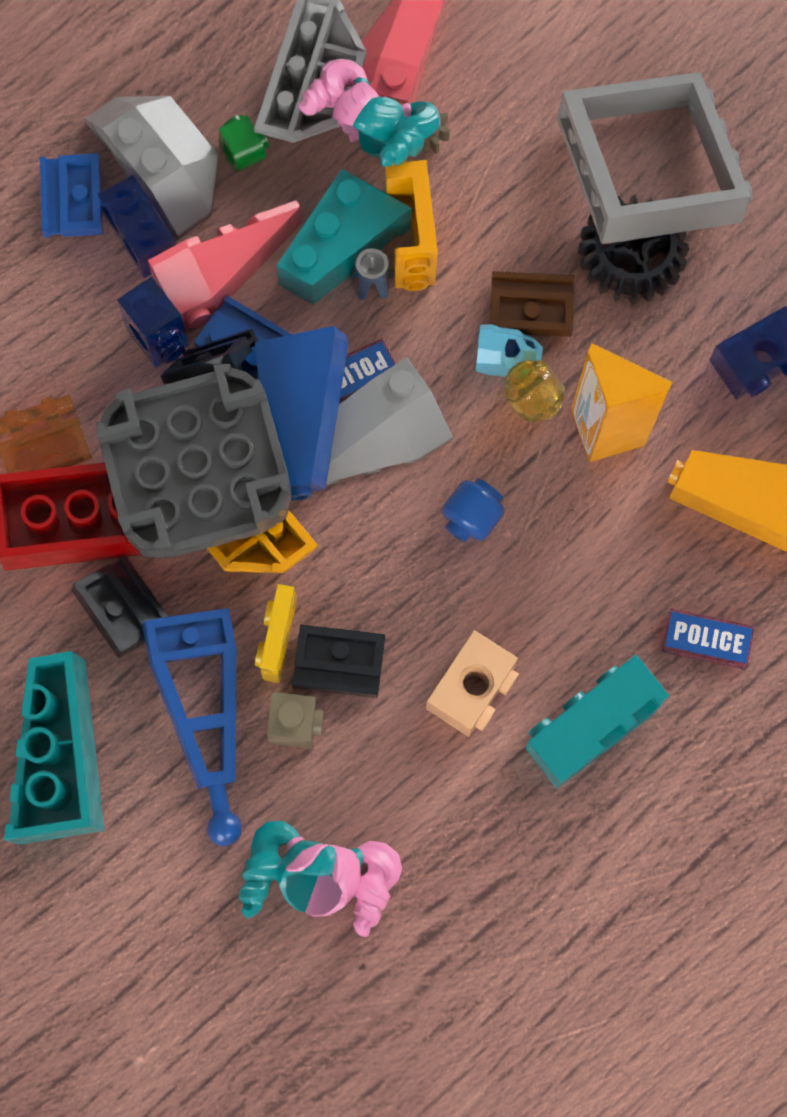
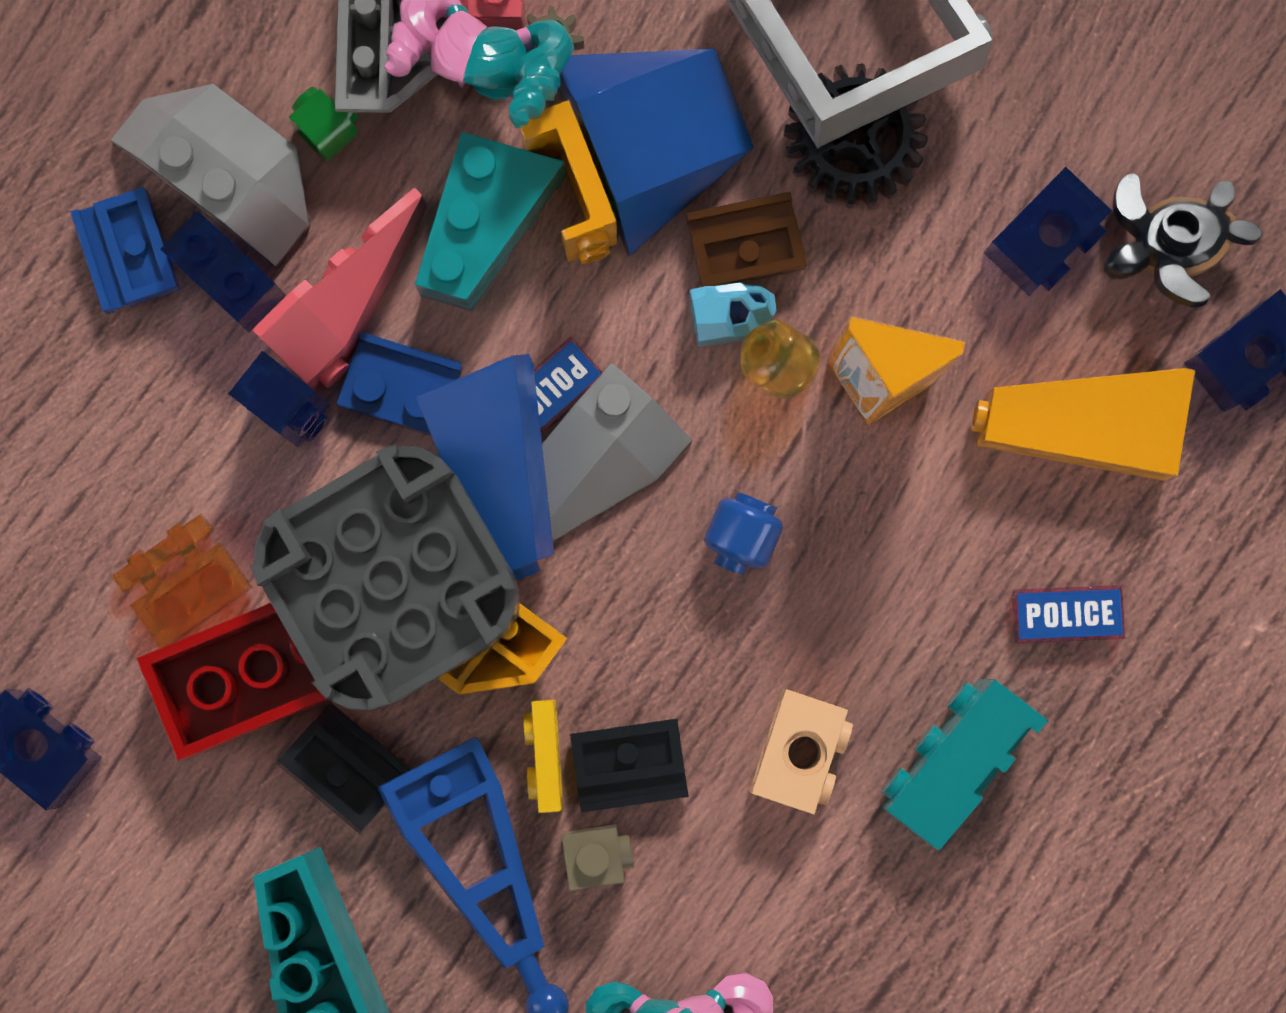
camera: 15 degrees left, 10 degrees up
(201, 359) = (365, 428): black plate -> none
(371, 269) = (535, 253): piece -> none
(485, 209) = (655, 130): none -> blue wedge

